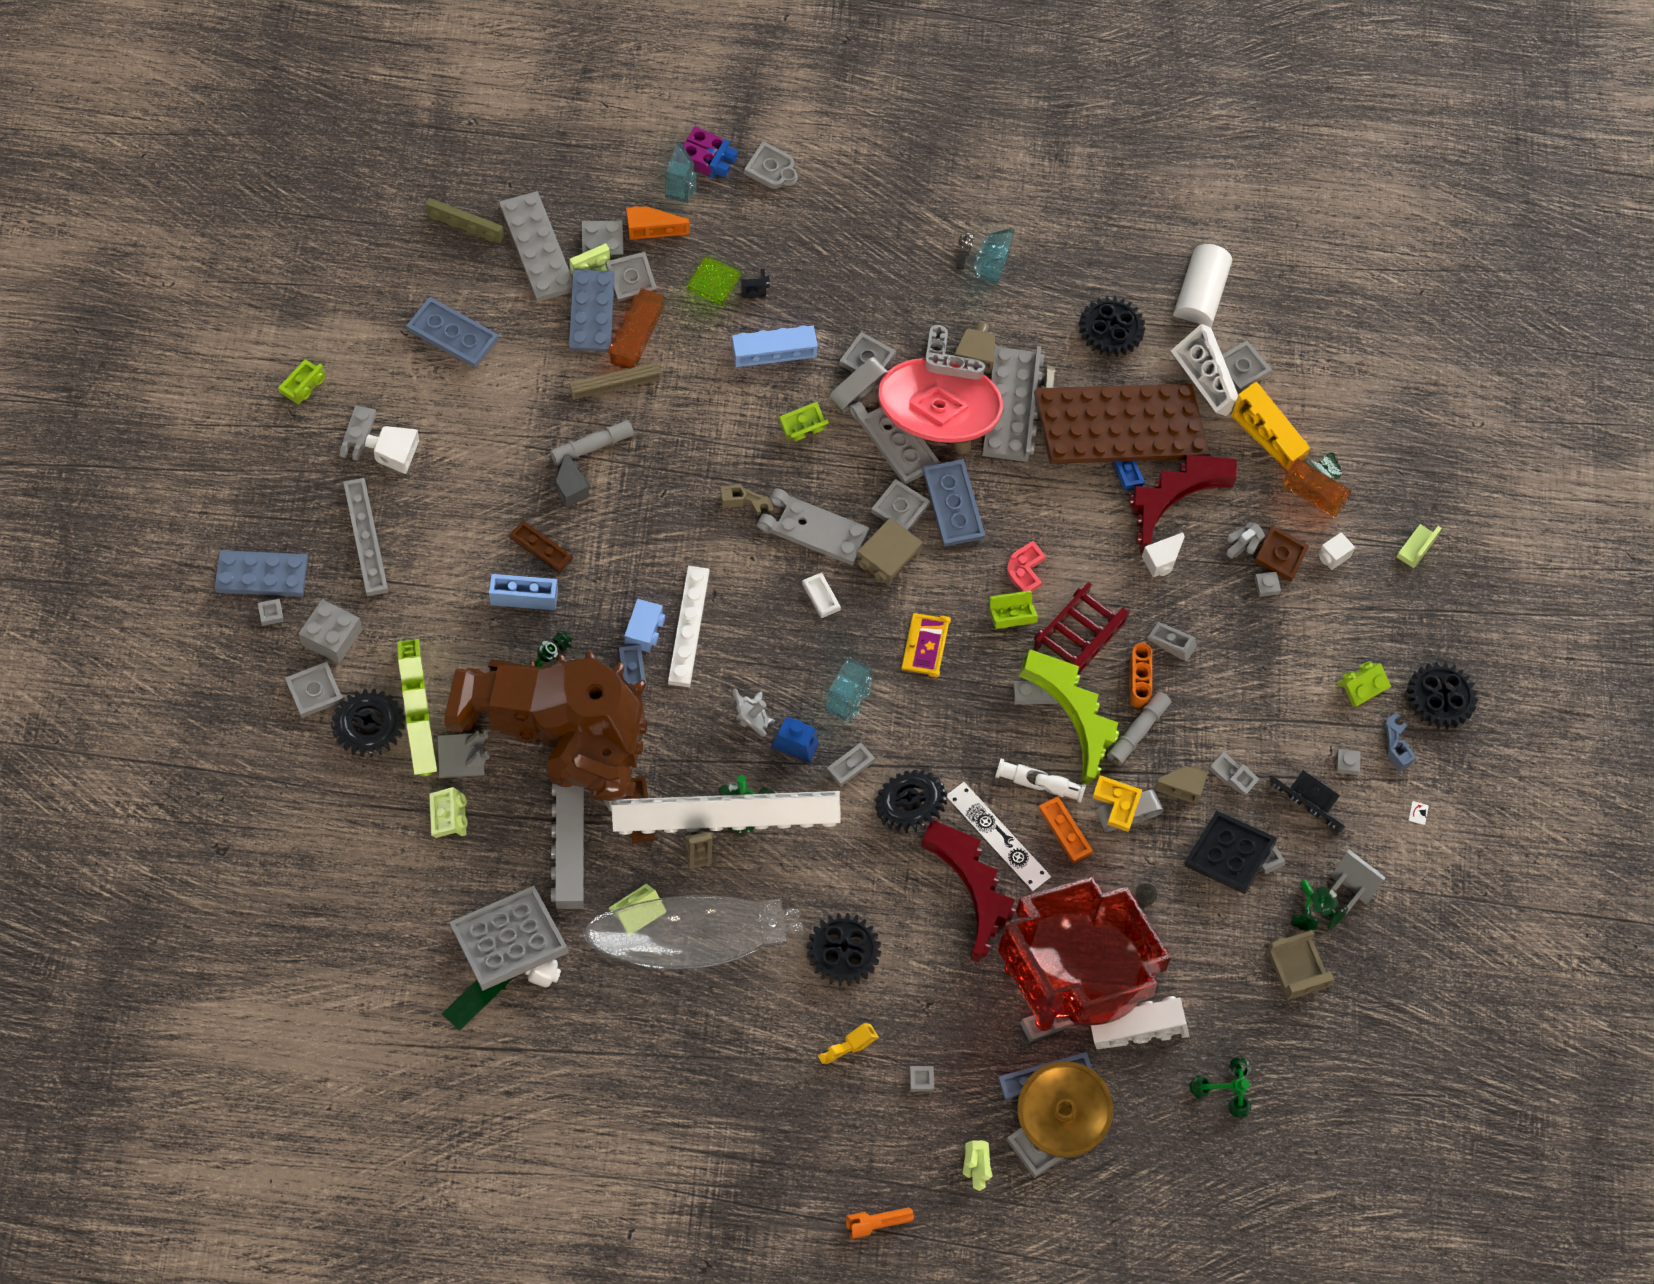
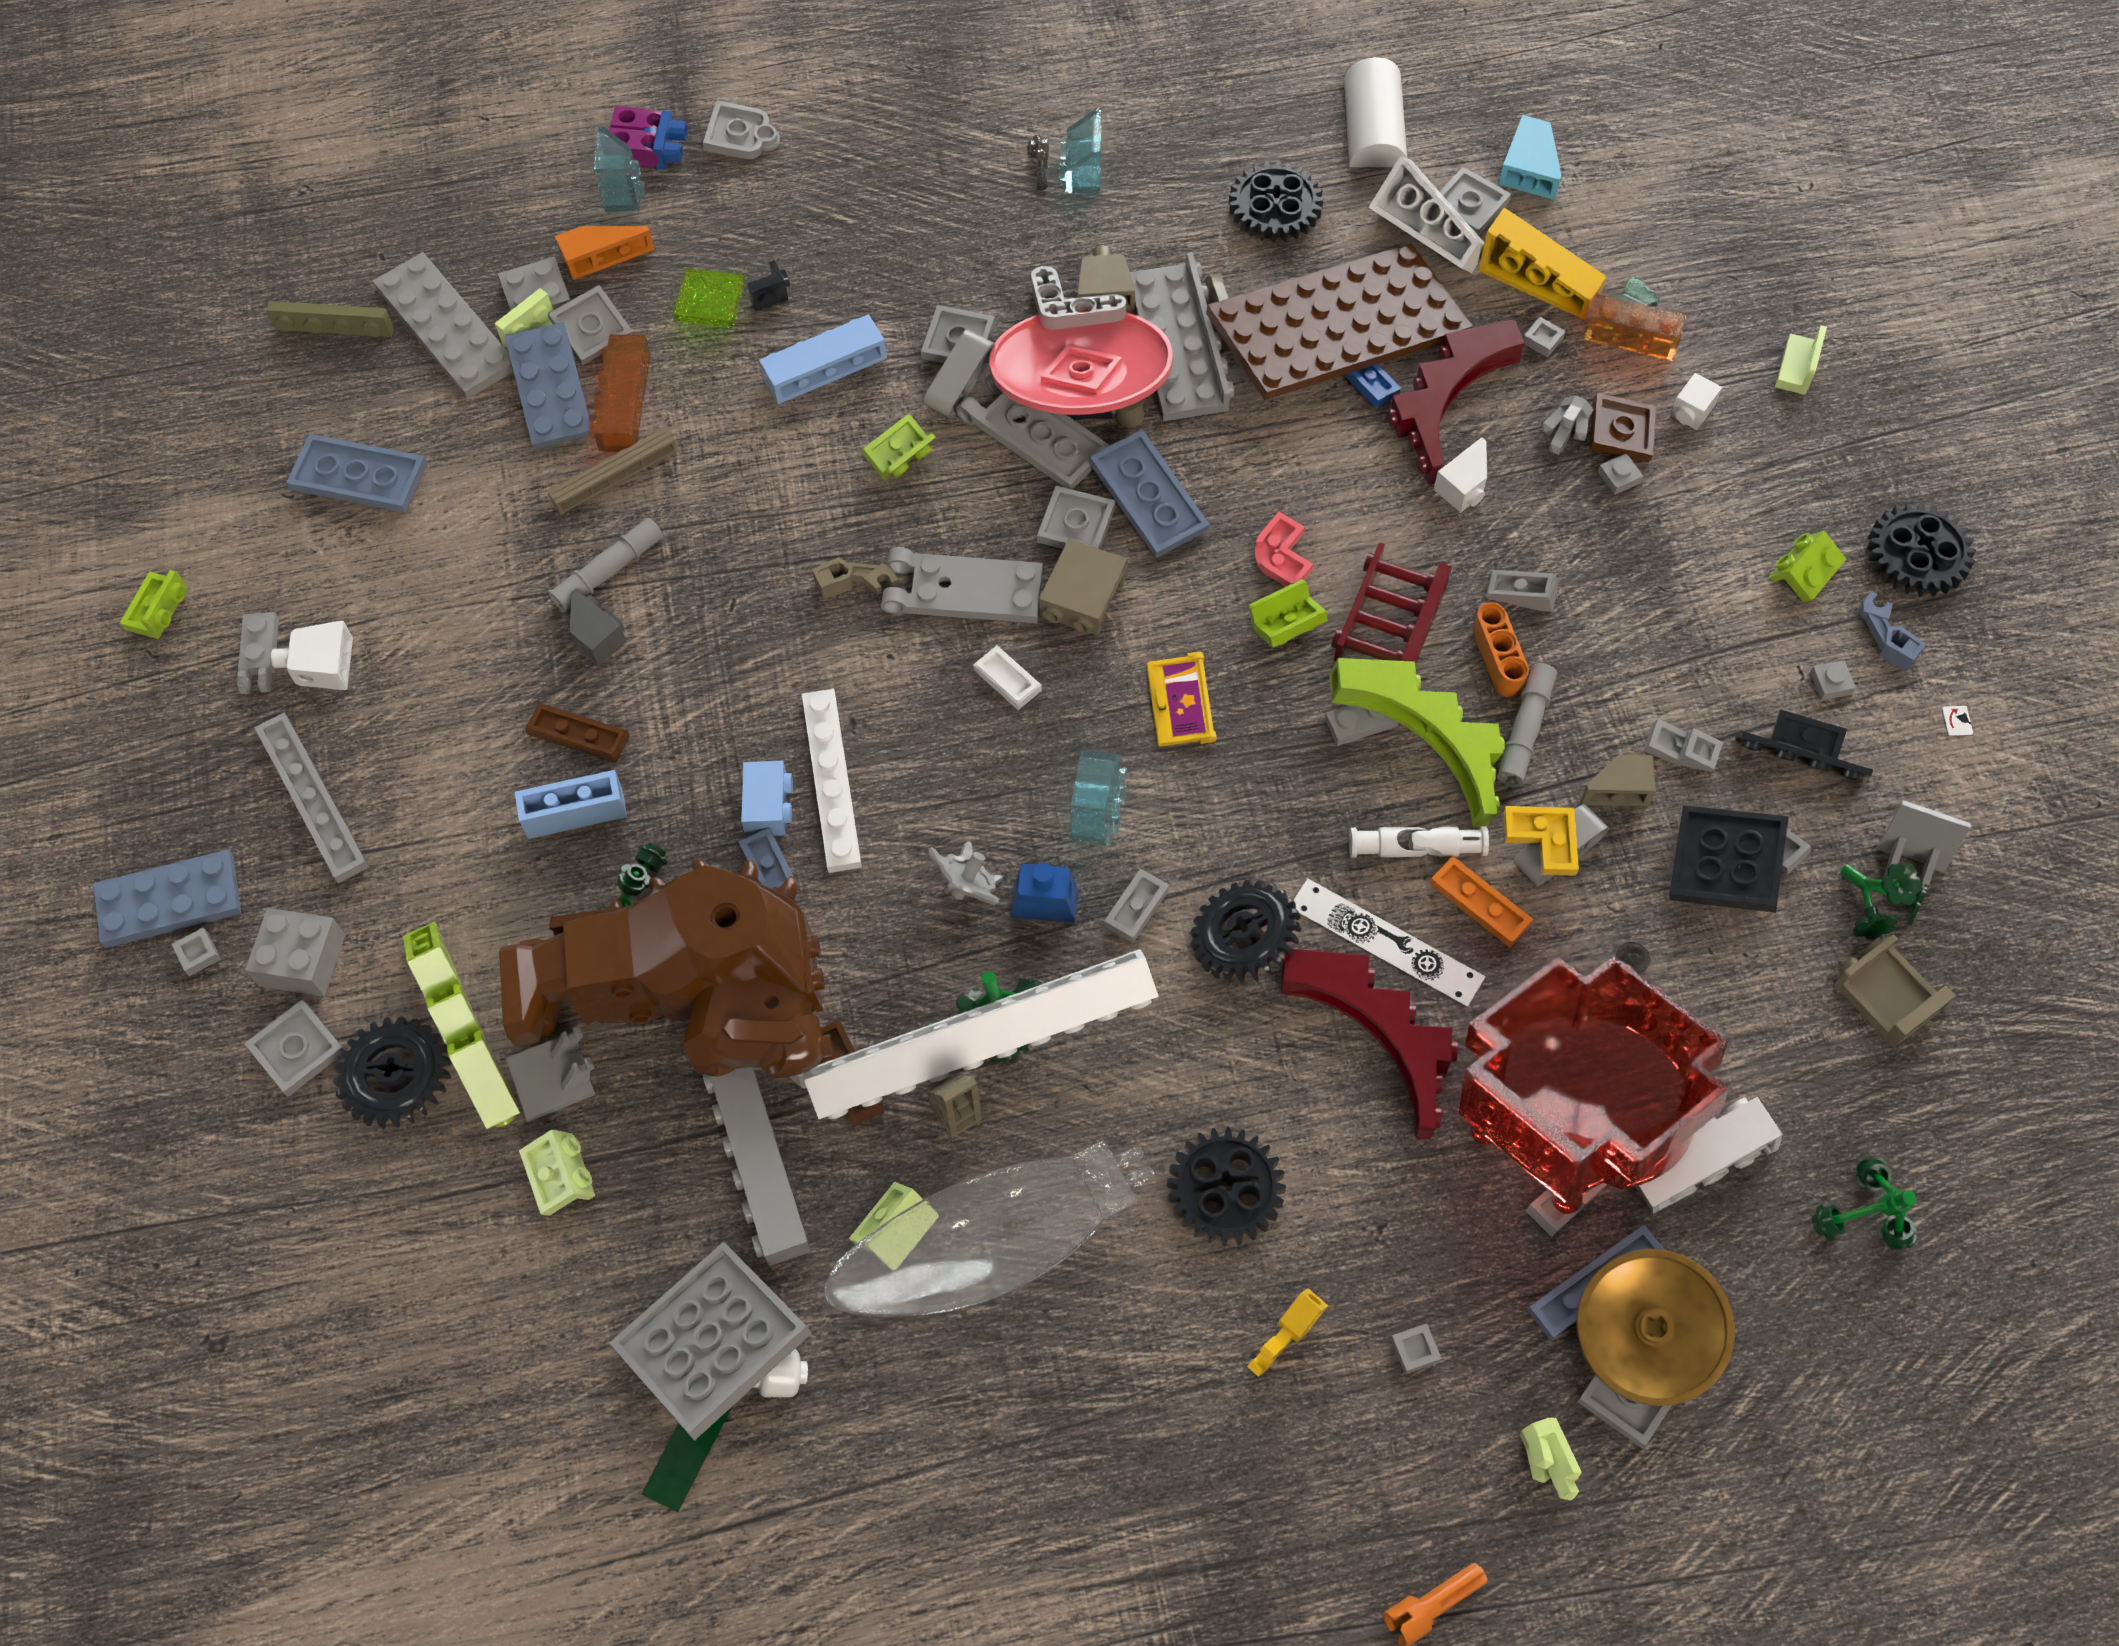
camera: 10 degrees left, 0 degrees up
(1254, 475) = (1543, 336): none -> light grey plate
(1296, 348) = (1532, 160): none -> medium azure slope

